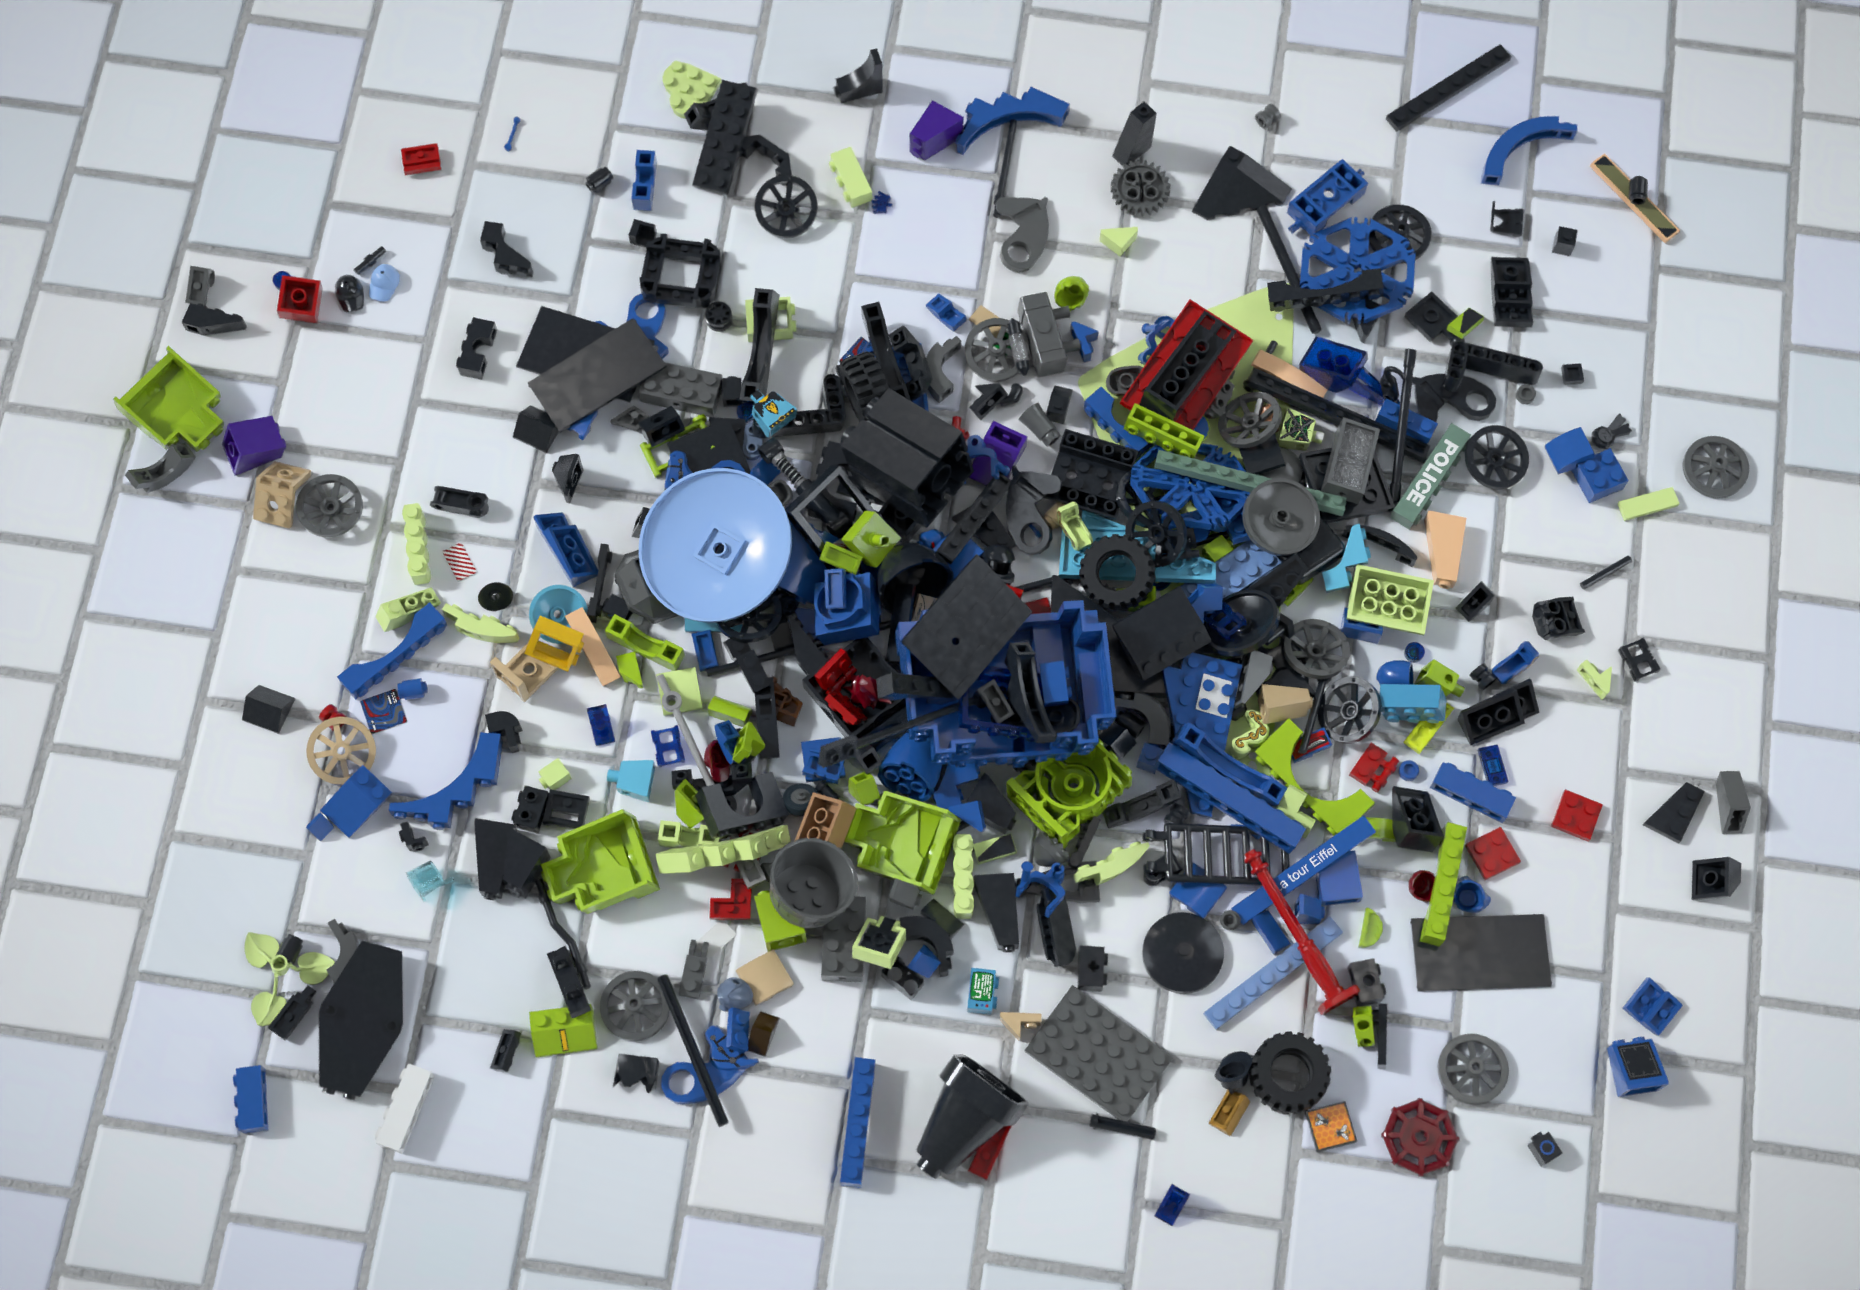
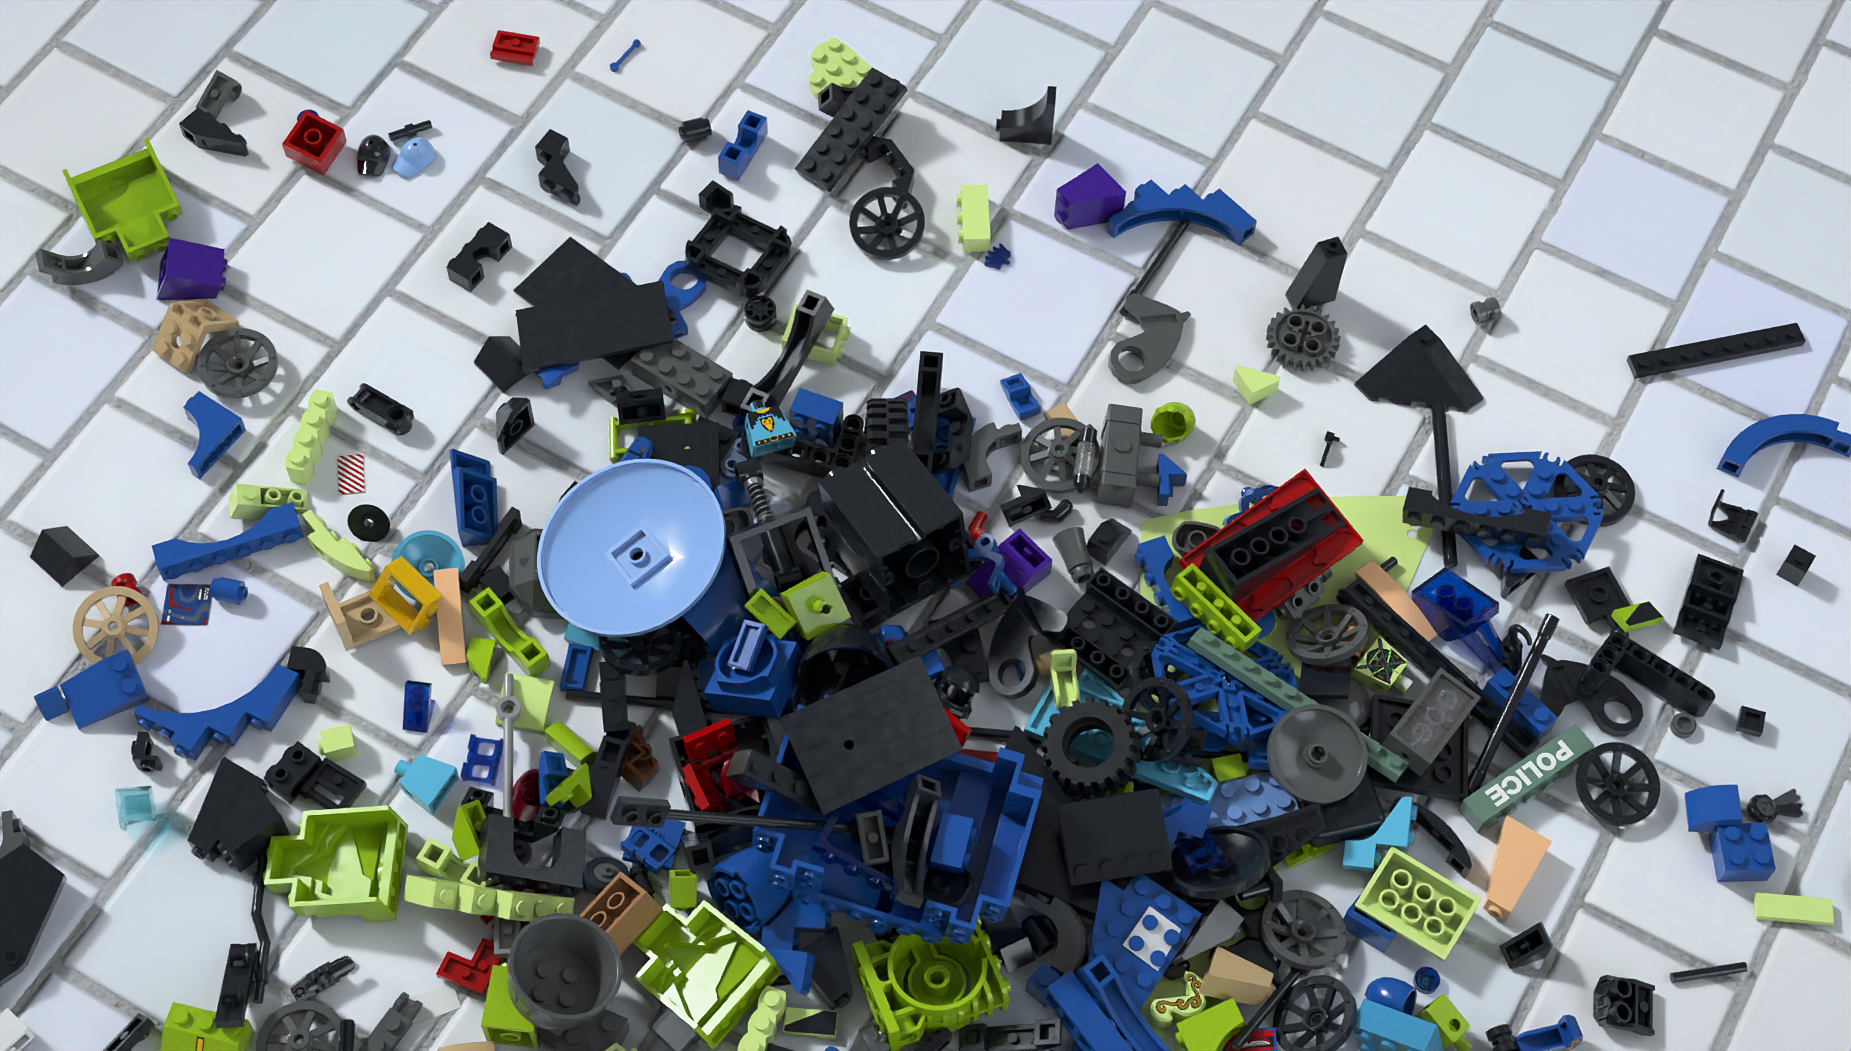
camera: 20 degrees right, 10 degrees down
(338, 563) = (217, 431): none -> blue arch
(627, 952) = (322, 978): none -> black hinge
(802, 387) = (816, 418): none -> blue brick
(1190, 261) = (1329, 438): none -> black piece
(1313, 208) = (1498, 425): blue brick -> none

